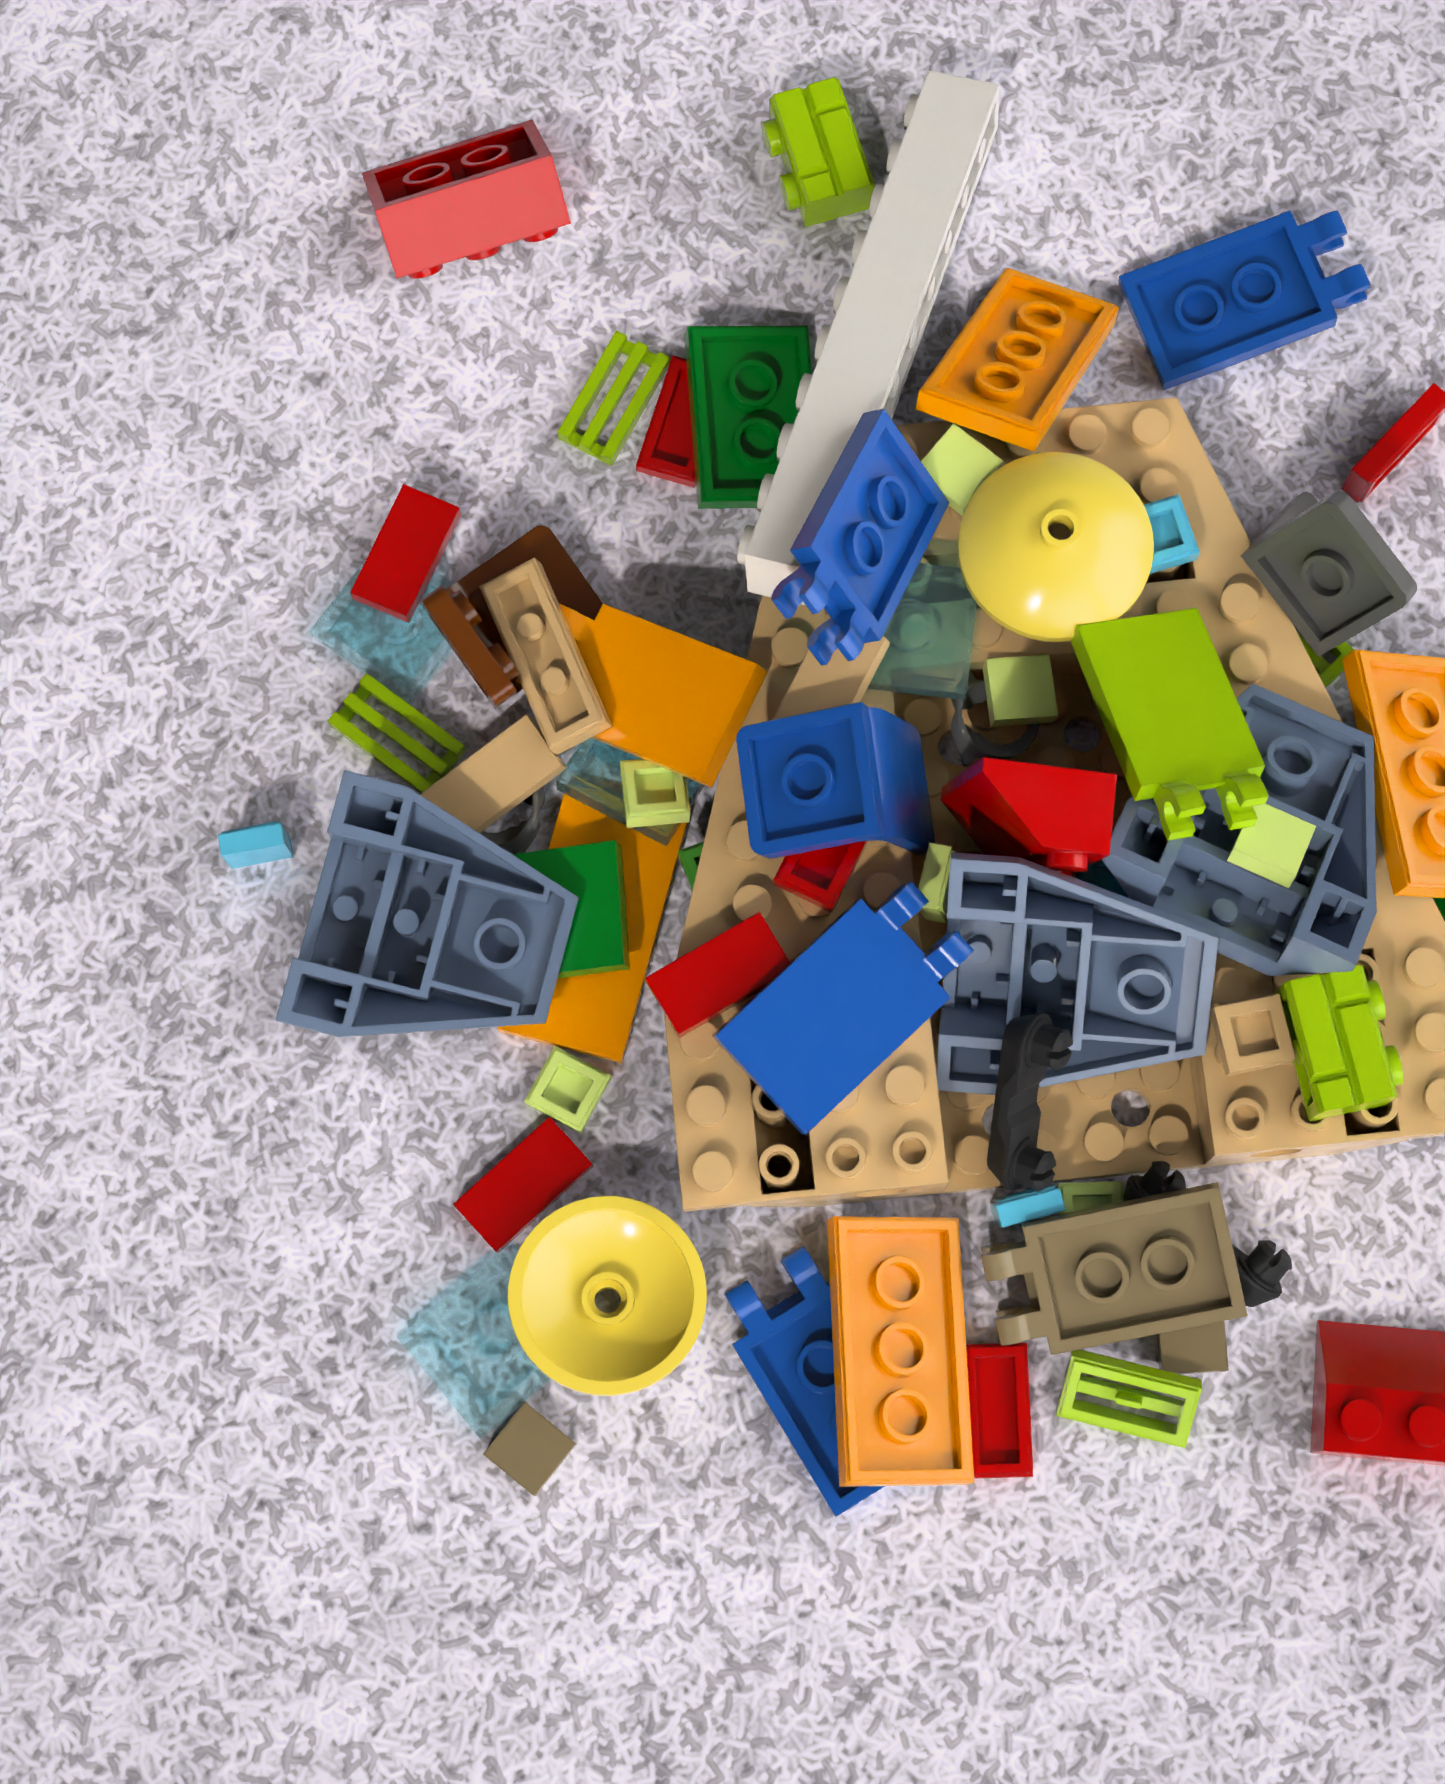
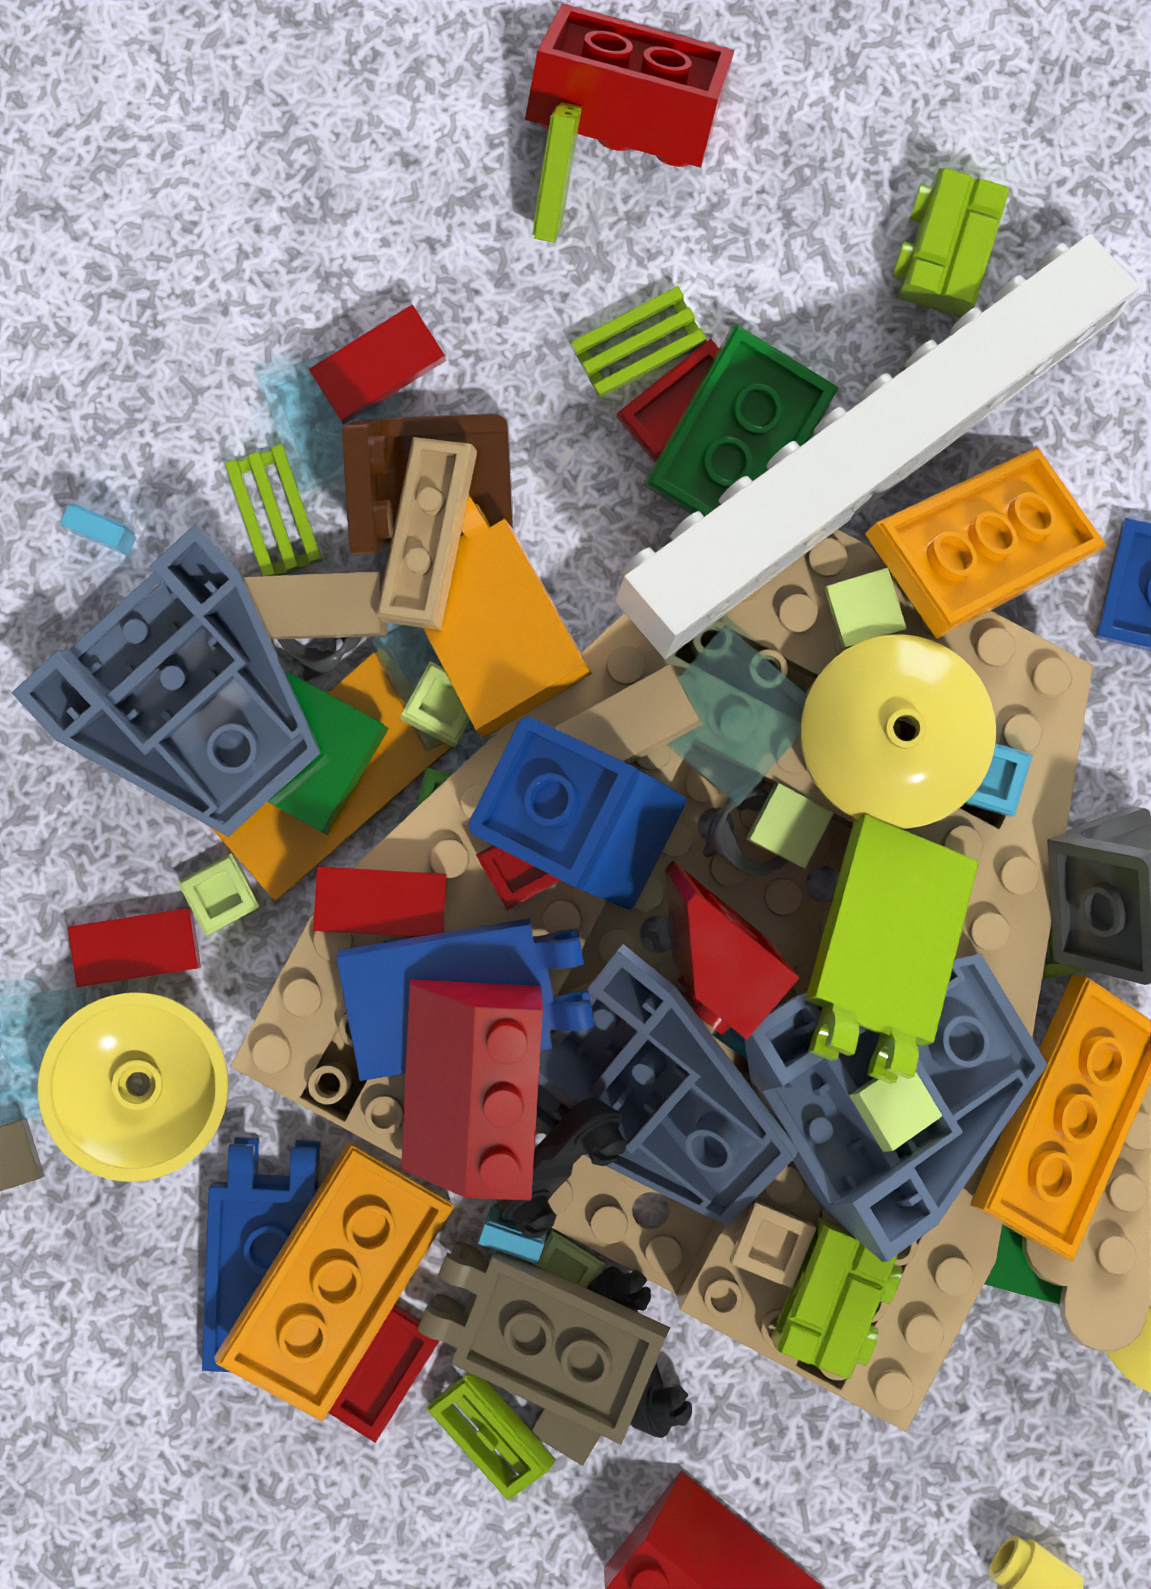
camera: 30 degrees right, 10 degrees up
(454, 300) = (556, 171): none -> lime tile
(862, 539) = (733, 627): blue tile -> none
(907, 1067) = (472, 1087): none -> red slope
(935, 882) = (605, 943): yellowish green tile -> none

